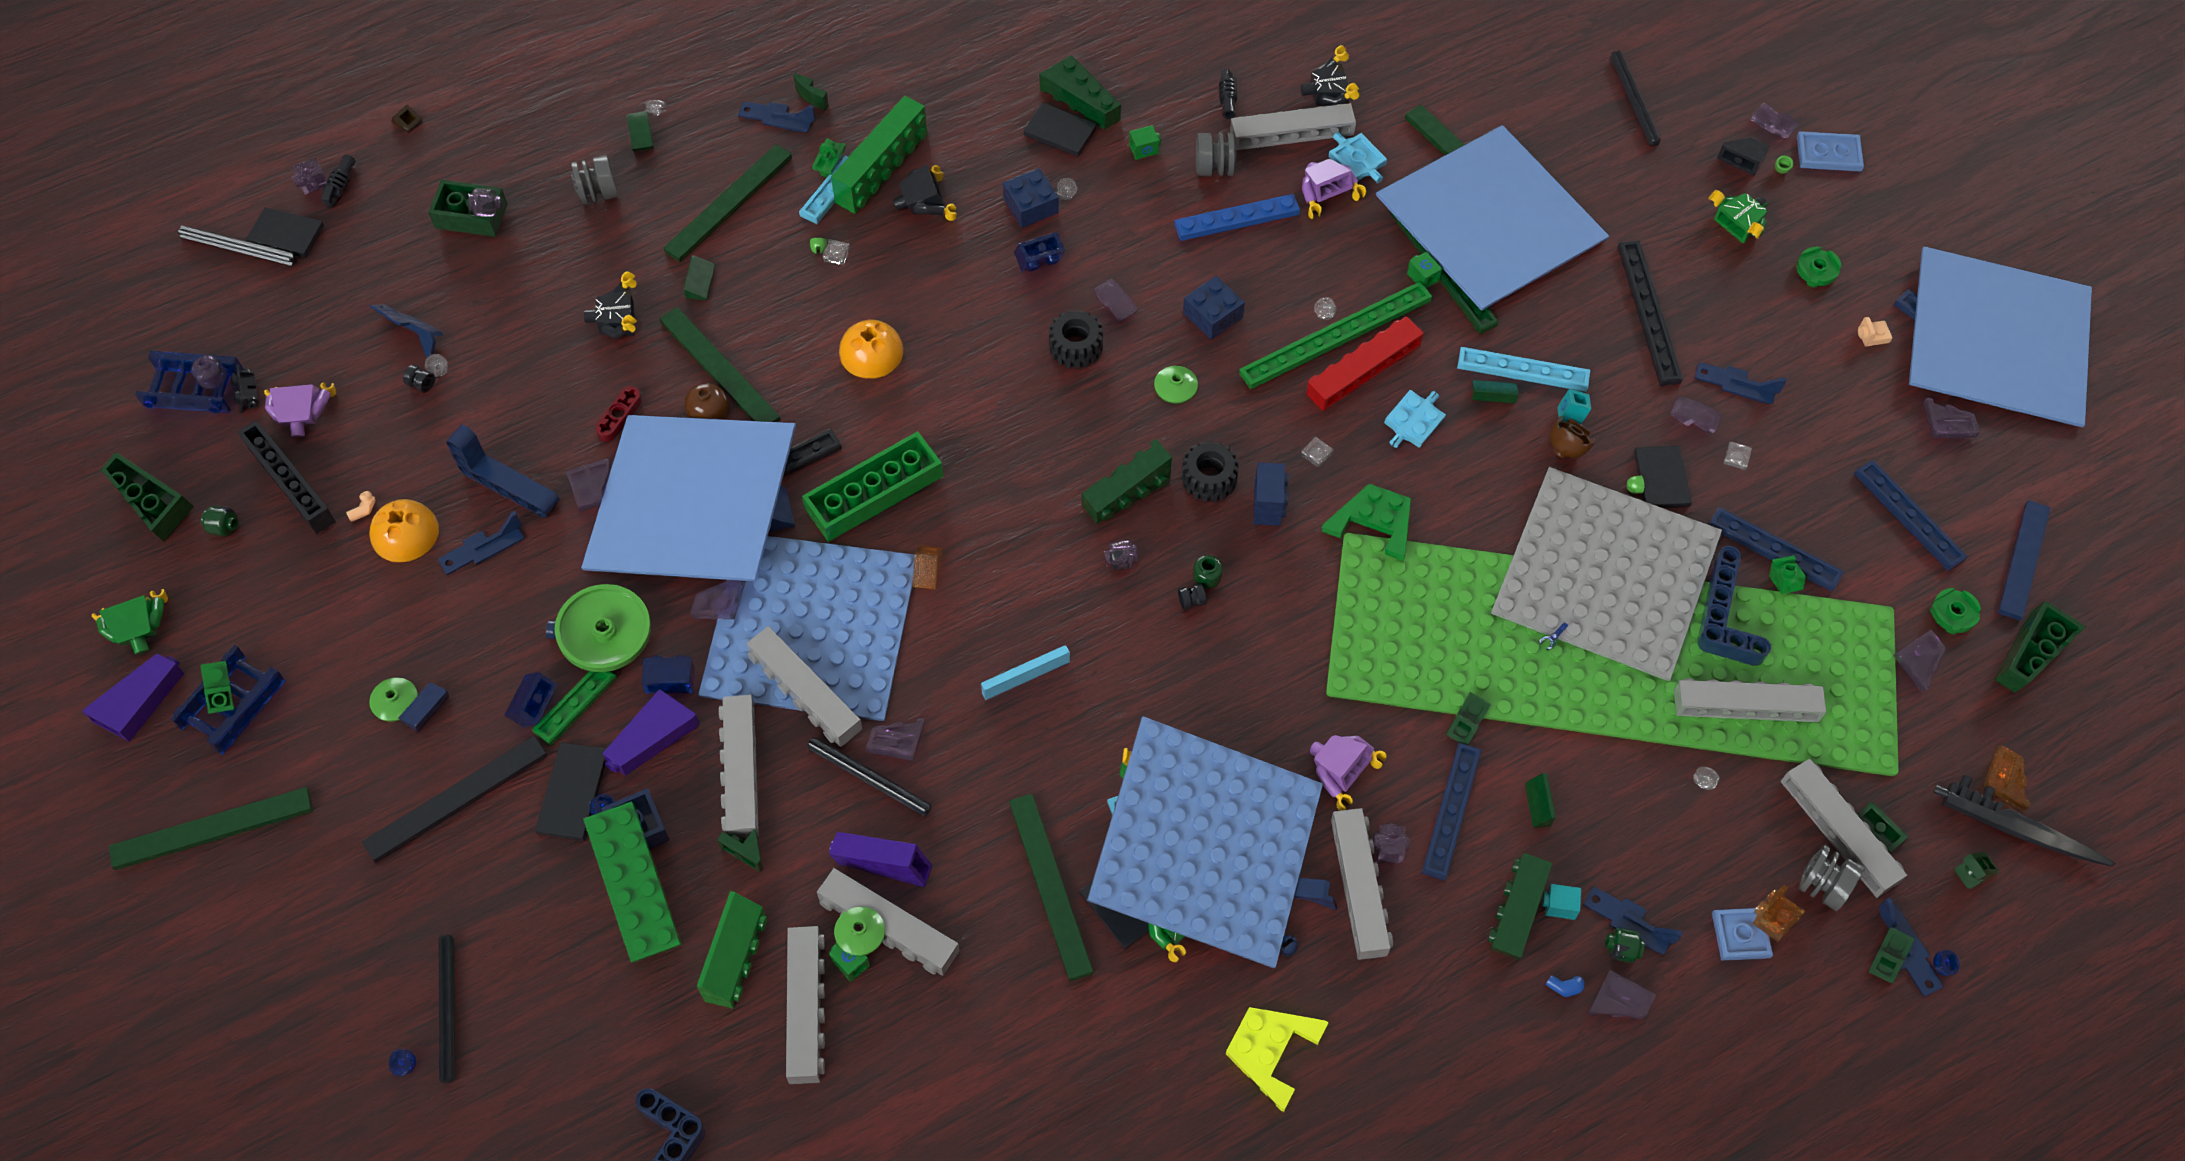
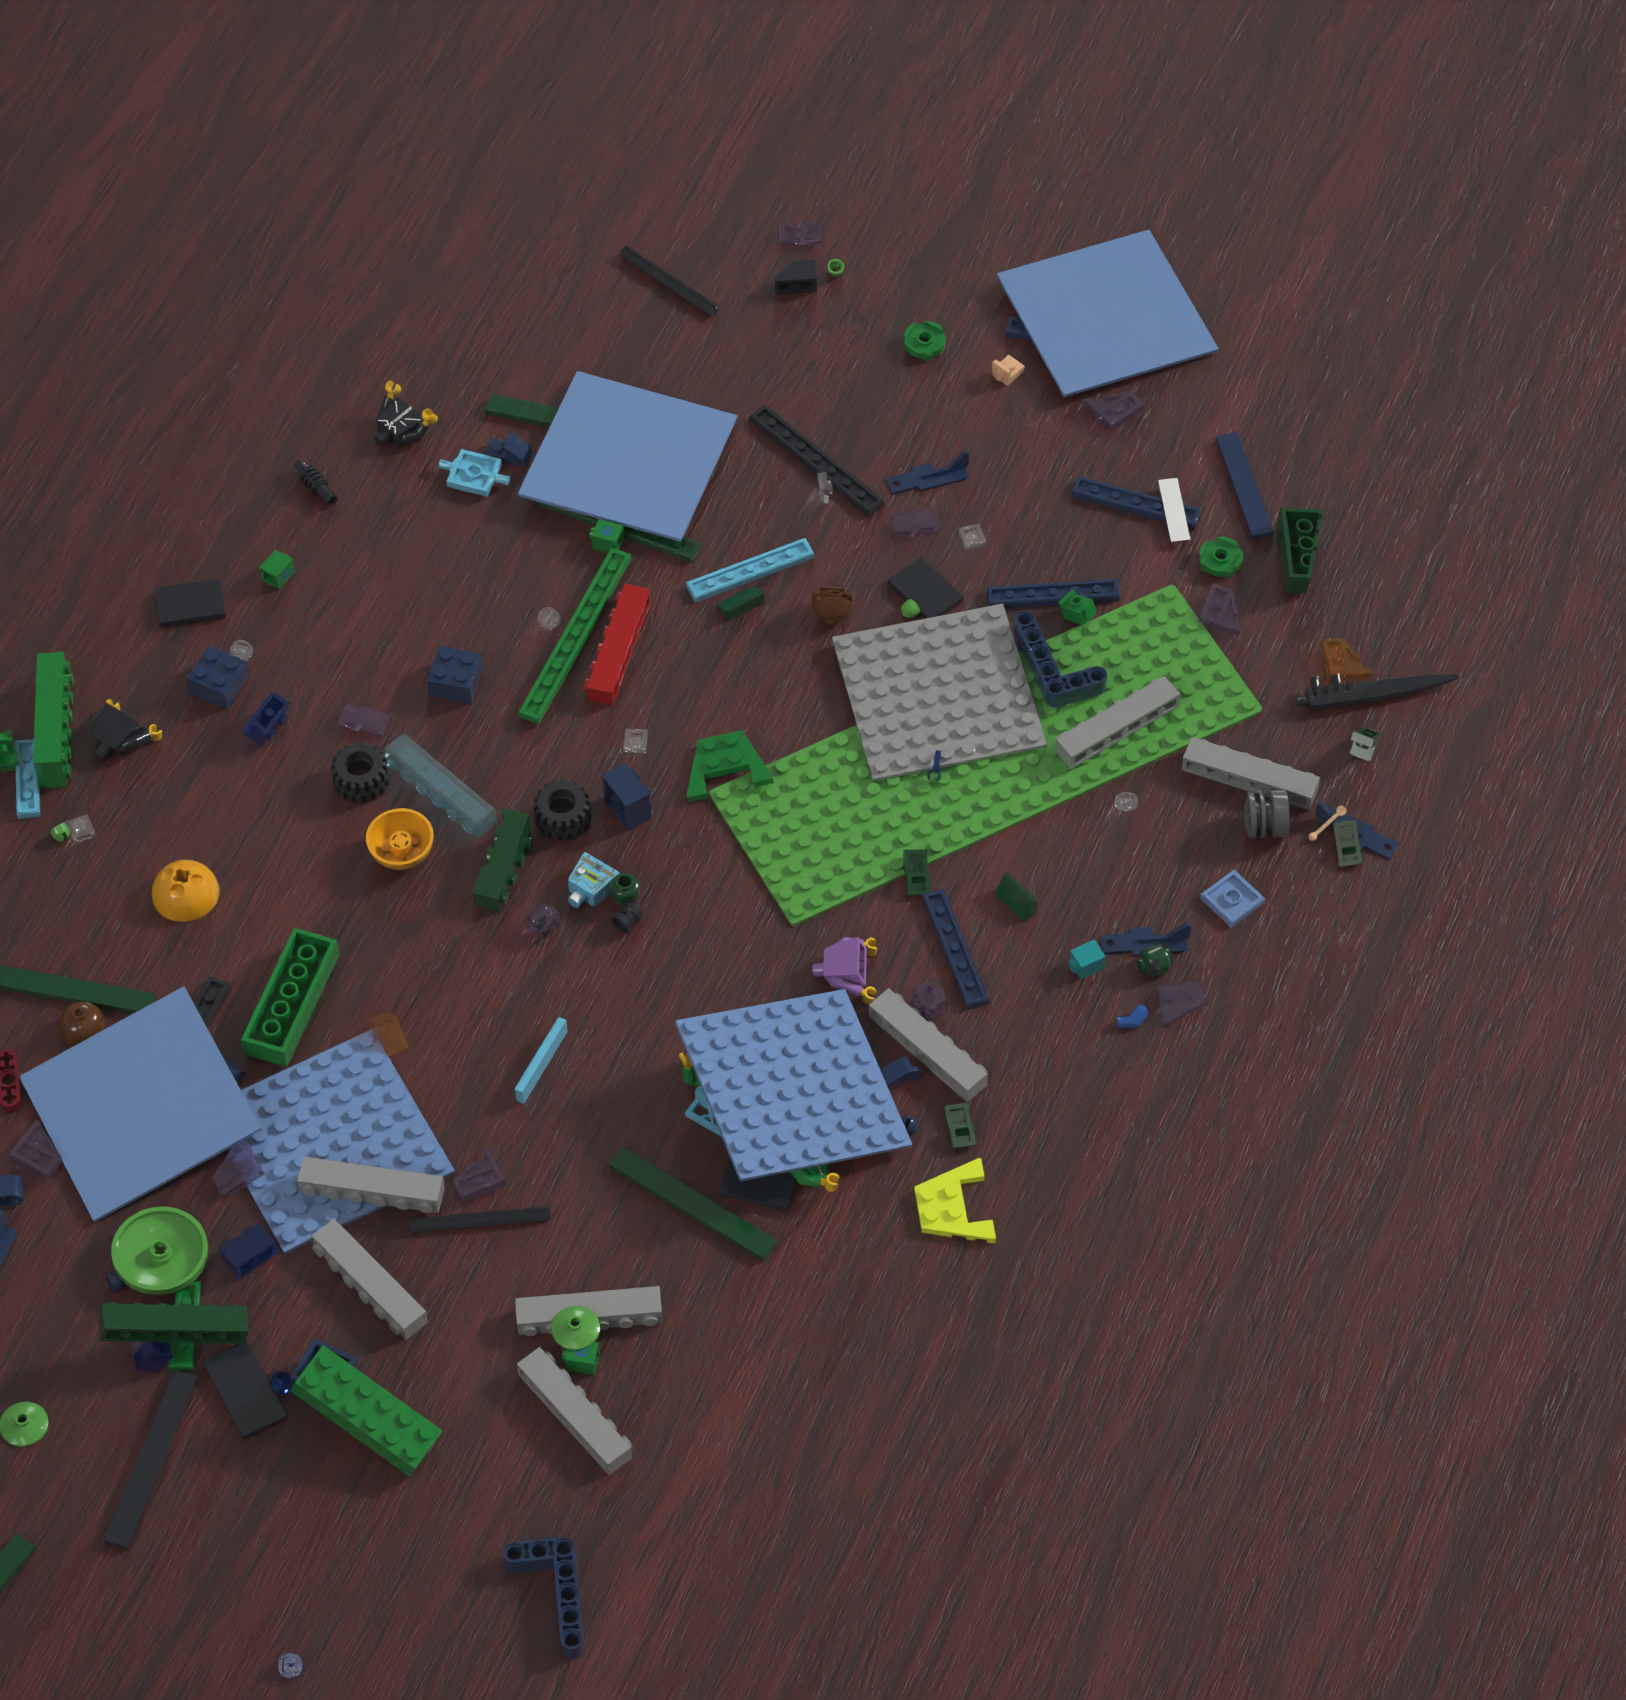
camera: 35 degrees left, 5 degrees down
(424, 706) = (57, 1410): dark blue slope -> none
(446, 1009) = (289, 1606): black axle -> none
(550, 697) = (173, 1323): none -> dark green brick
(649, 733) = (273, 1298): dark purple slope -> none
(731, 951) = (486, 1410): green slope -> none
(746, 851) = (432, 1338): dark green slope -> none
(881, 857) = (544, 1267): dark purple slope -> none
(1059, 412) = (400, 838): none -> light orange piece
(1081, 91) = (184, 557): dark green wedge -> none
(1130, 389) = (440, 786): none -> clear light blue brick
(1176, 391) = (474, 765): bright green dish -> none
(1185, 545) = (590, 881): none -> medium azure torso
(1215, 154) = (351, 542): dark grey wheel -> none
(1236, 217) = (410, 586): blue plate -> none
(1292, 126) = (396, 478): light grey brick -> none
(1326, 181) = (465, 509): medium lavender torso -> none
(1333, 978) = (959, 1125): none -> dark green slope
(1400, 157) = (511, 451): none -> dark blue slope
(1414, 419) = (693, 665): medium azure plate -> none
(1520, 905) = (1058, 981): dark green wedge -> none
(1574, 406) = (816, 575): teal brick -> none
(1638, 337) = (824, 487): none -> clear plate
(1740, 214) = (832, 333): green torso -> none
(1777, 914) = (1247, 866): clear orange bracket -> none
(1830, 151) = (863, 233): medium blue tile -> none
(1882, 826) = (1279, 754): dark green slope -> none
(1905, 920) = (1339, 811): none -> light nougat hinge
(1941, 542) = (1174, 509): none -> white sticker
(1946, 963) = (1389, 823): clear blue tile -> none

